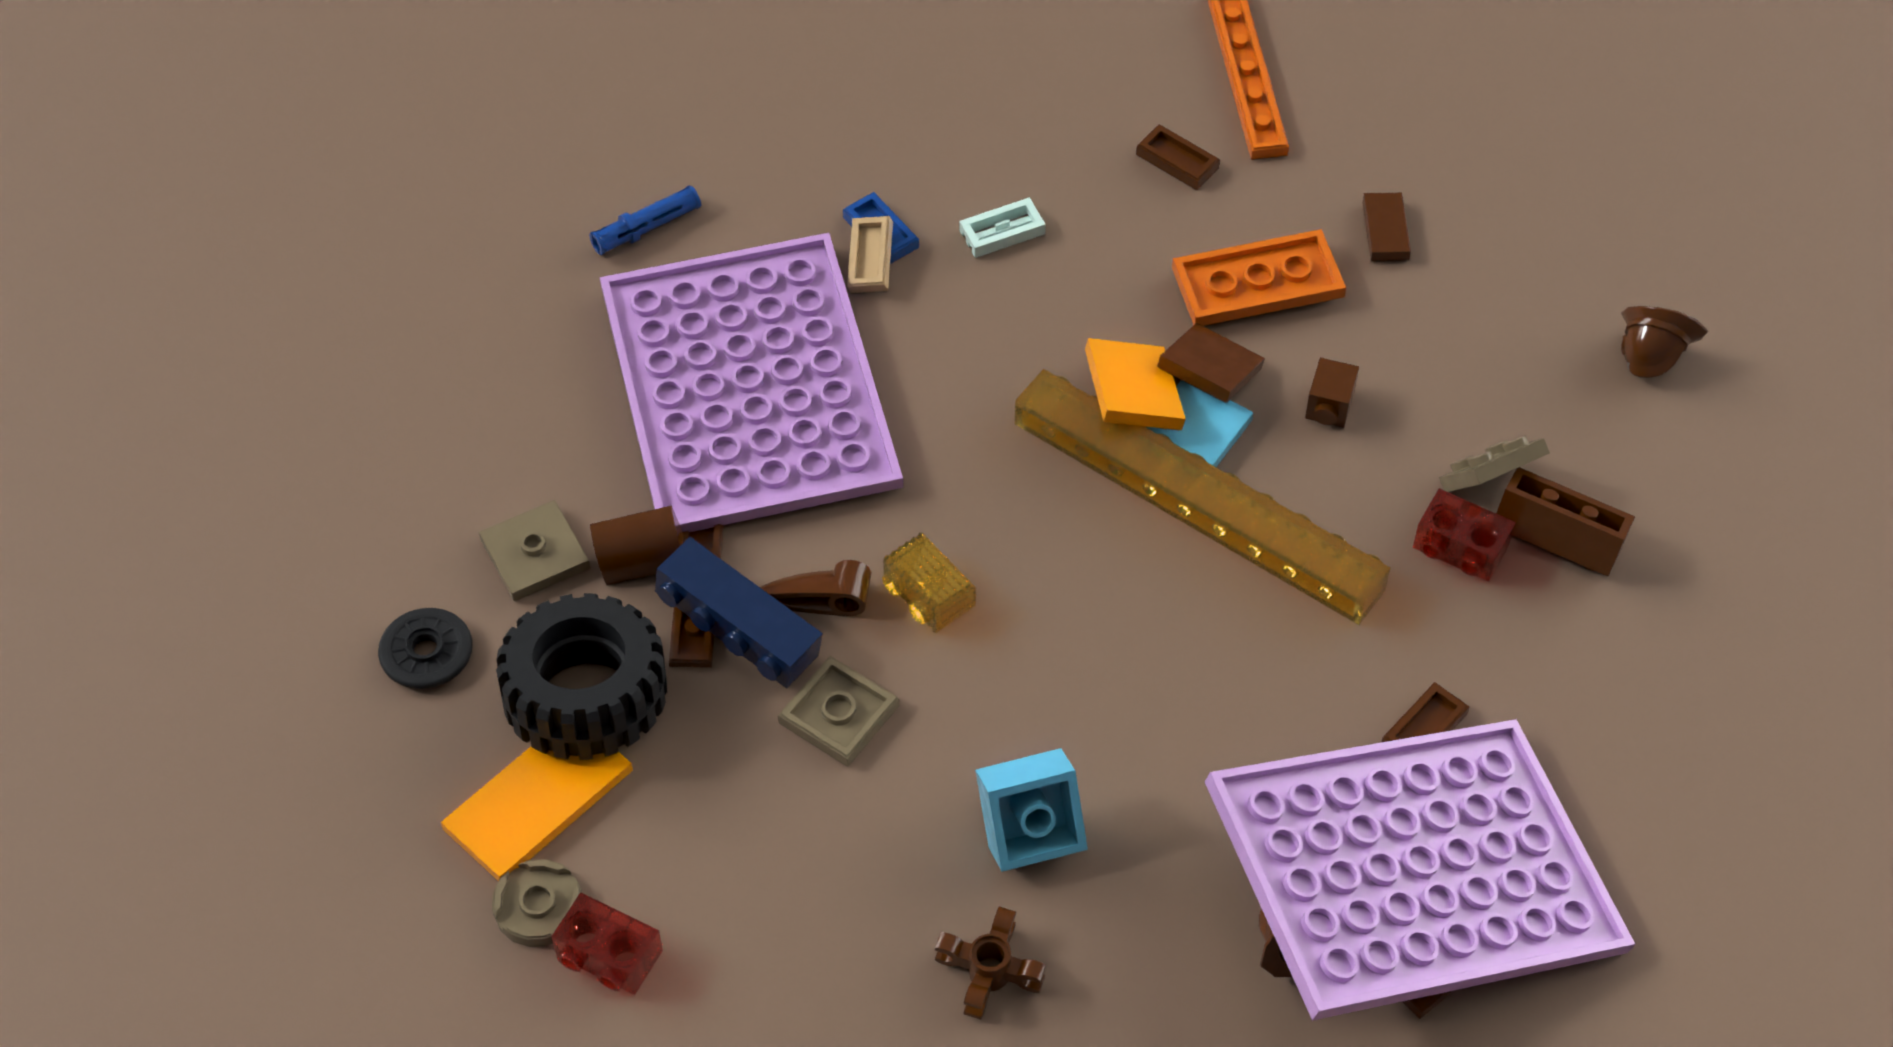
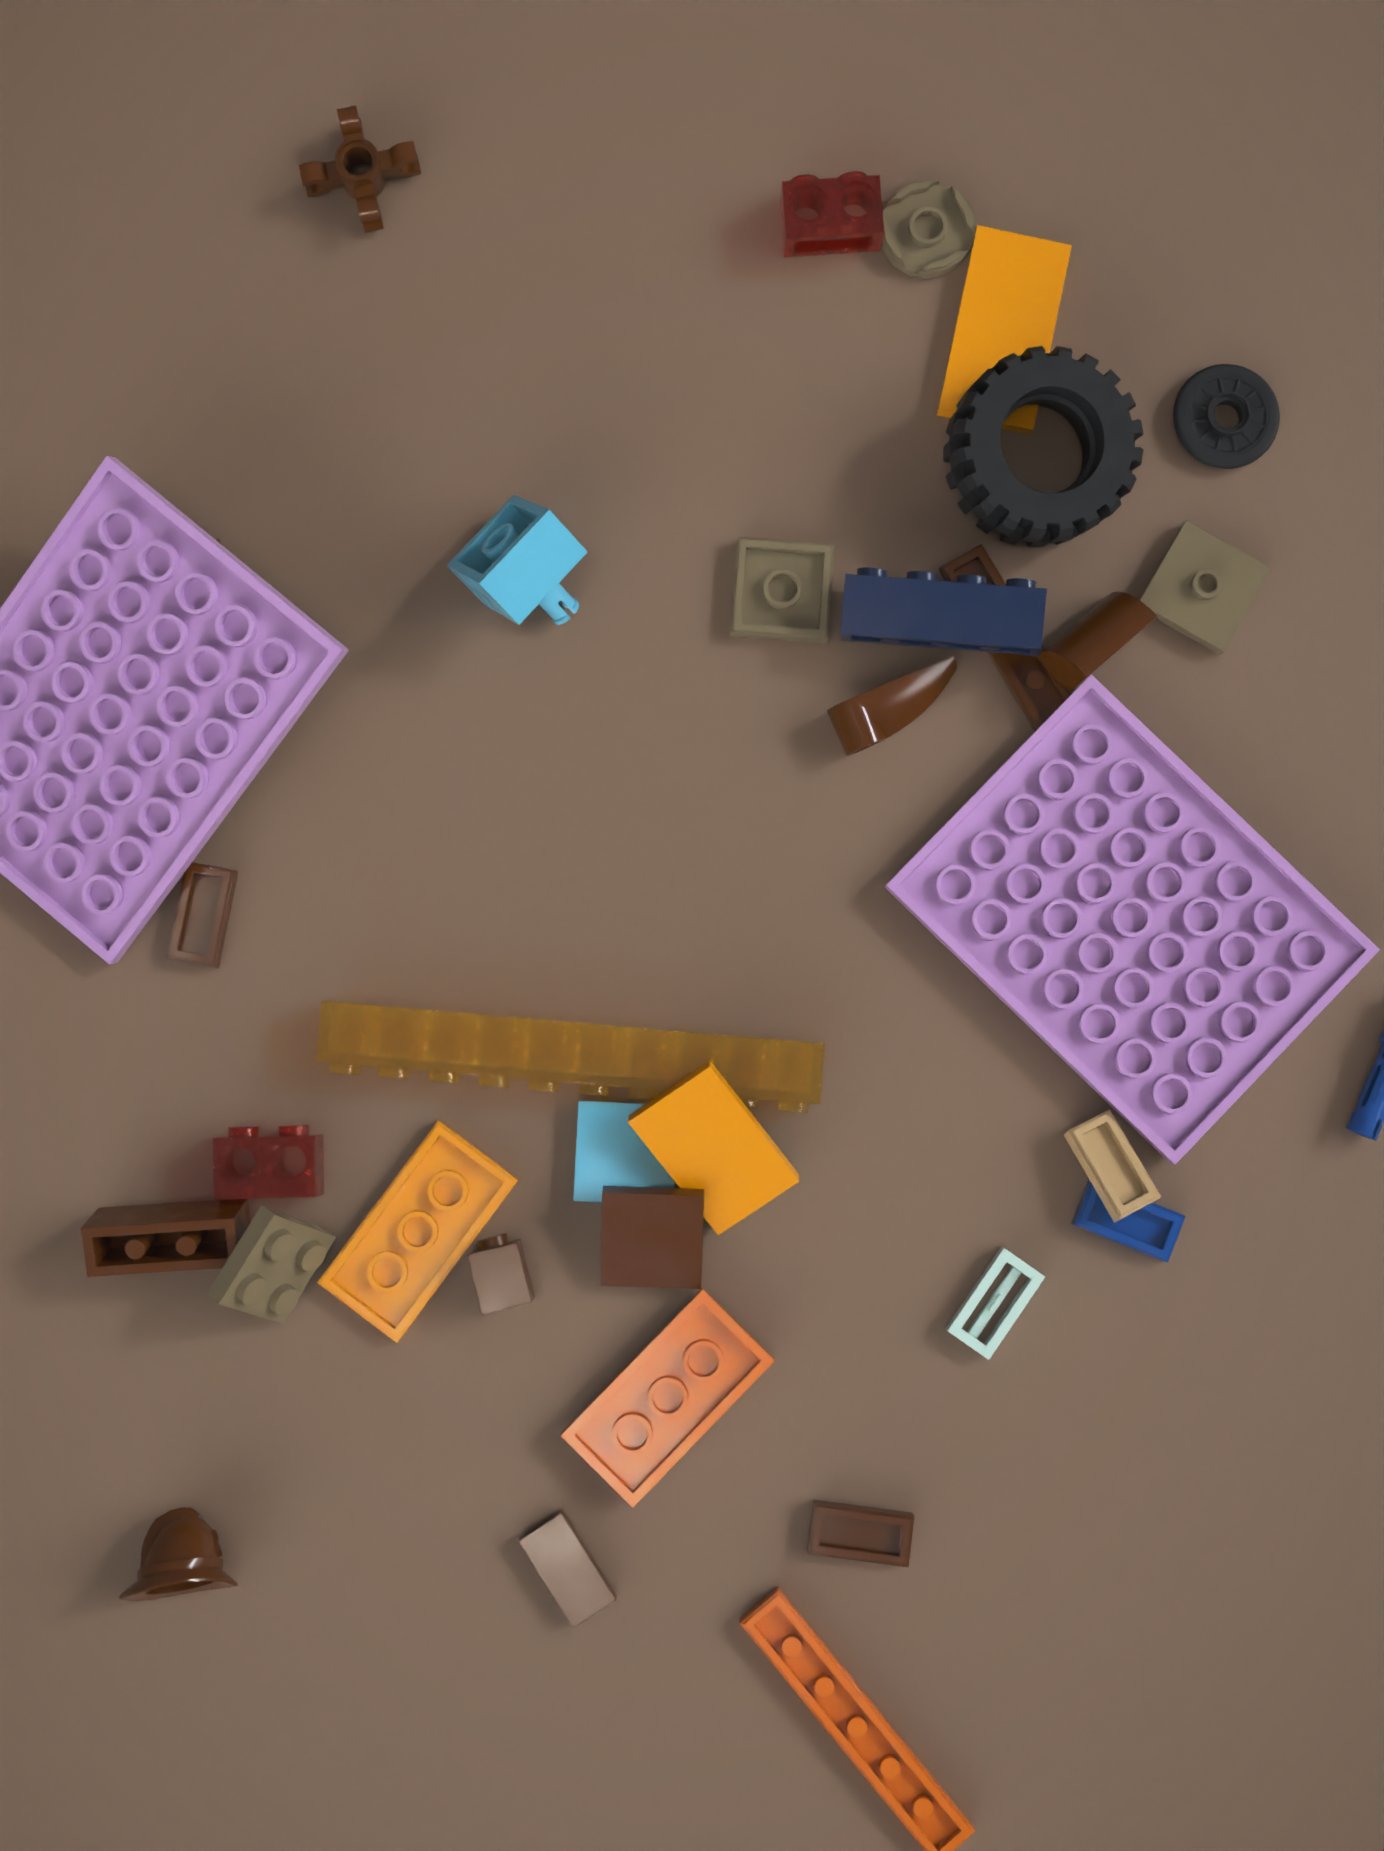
camera: 145 degrees right, 30 degrees up
(928, 583) = (781, 775): clear yellow brick -> none
(955, 952) = (434, 411): reddish brown pin -> none
(1375, 453) = (418, 1231): none -> light orange tile

